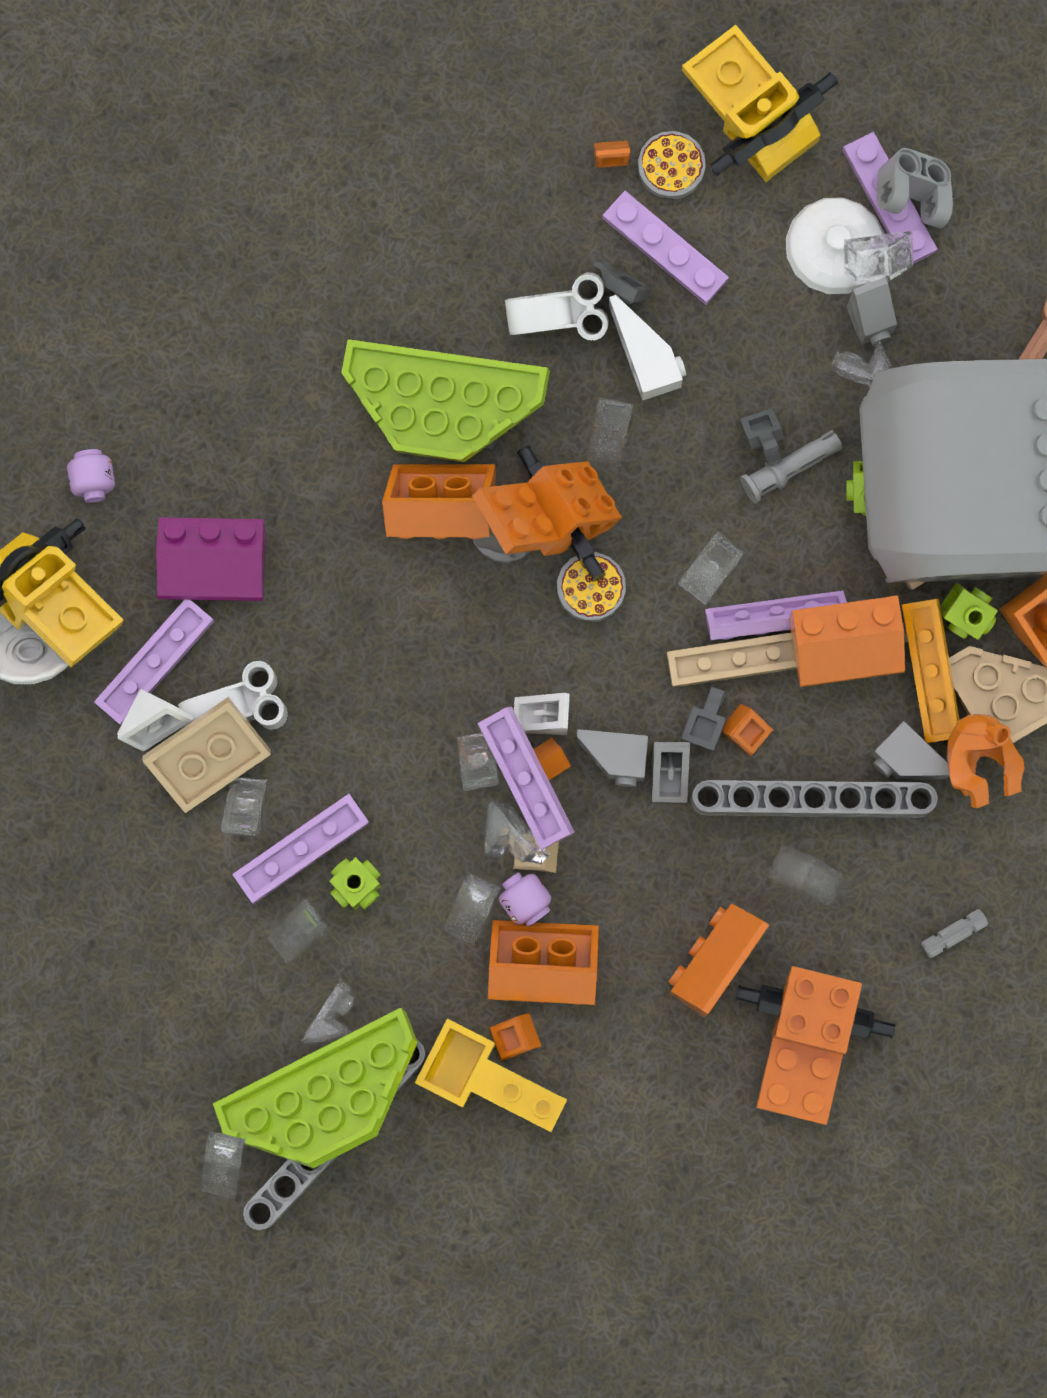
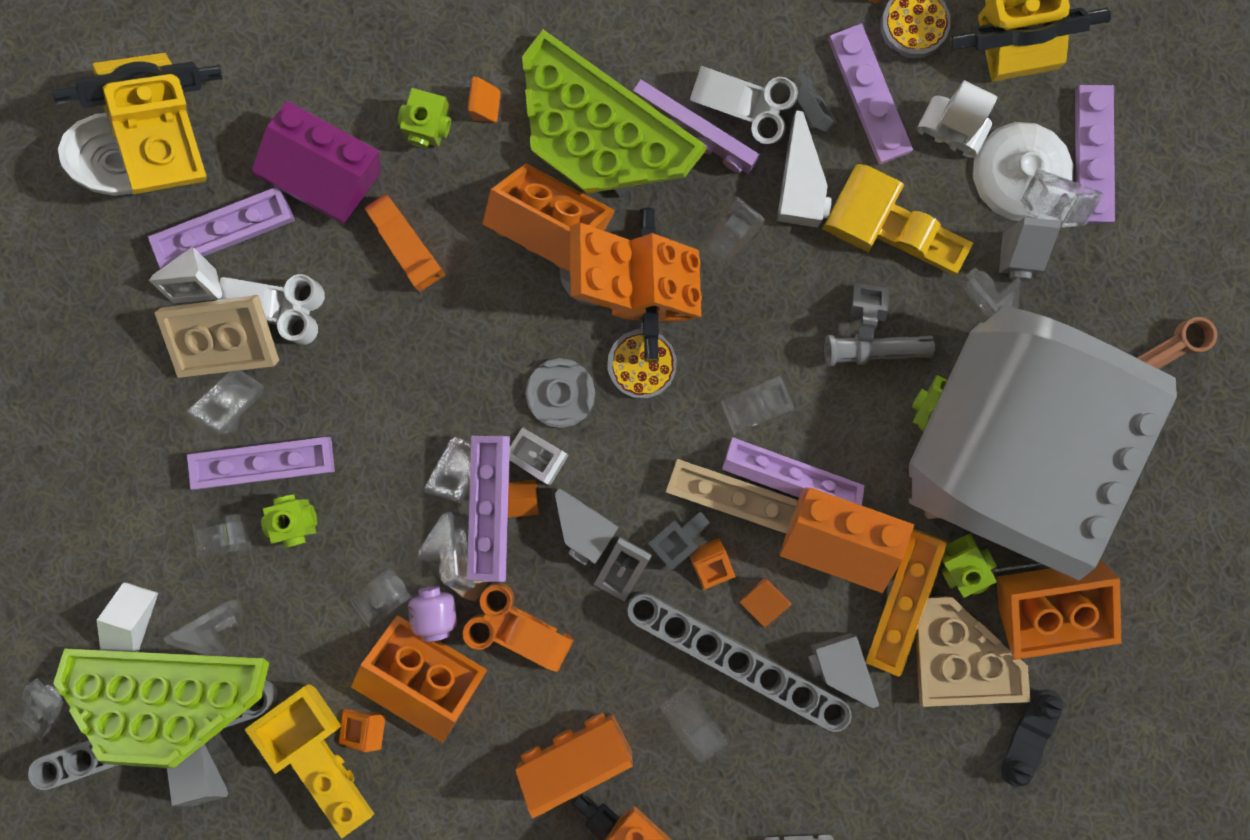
camera: 25 degrees right, 5 degrees up
(91, 475) = (253, 33): lavender head -> none
(254, 1048) = (126, 618): none -> white slope
(282, 460) = (424, 118): none -> lime brick
(324, 589) = (404, 243): none -> orange leg
(328, 429) = (483, 101): none -> orange slope
(395, 1150) = (196, 780): none -> light grey slope
(533, 650) = (566, 404): none -> light grey tile
(576, 361) = (735, 154): none -> lavender plate
(609, 874) = (518, 631): none -> orange piece
(718, 351) = (869, 212): none -> yellow plate
(754, 232) = (960, 120): none -> white piece
(811, 737) = (765, 602): none -> orange slope
(918, 178) = (1134, 148): light grey piece -> none
(979, 737) = (919, 691): orange piece -> none

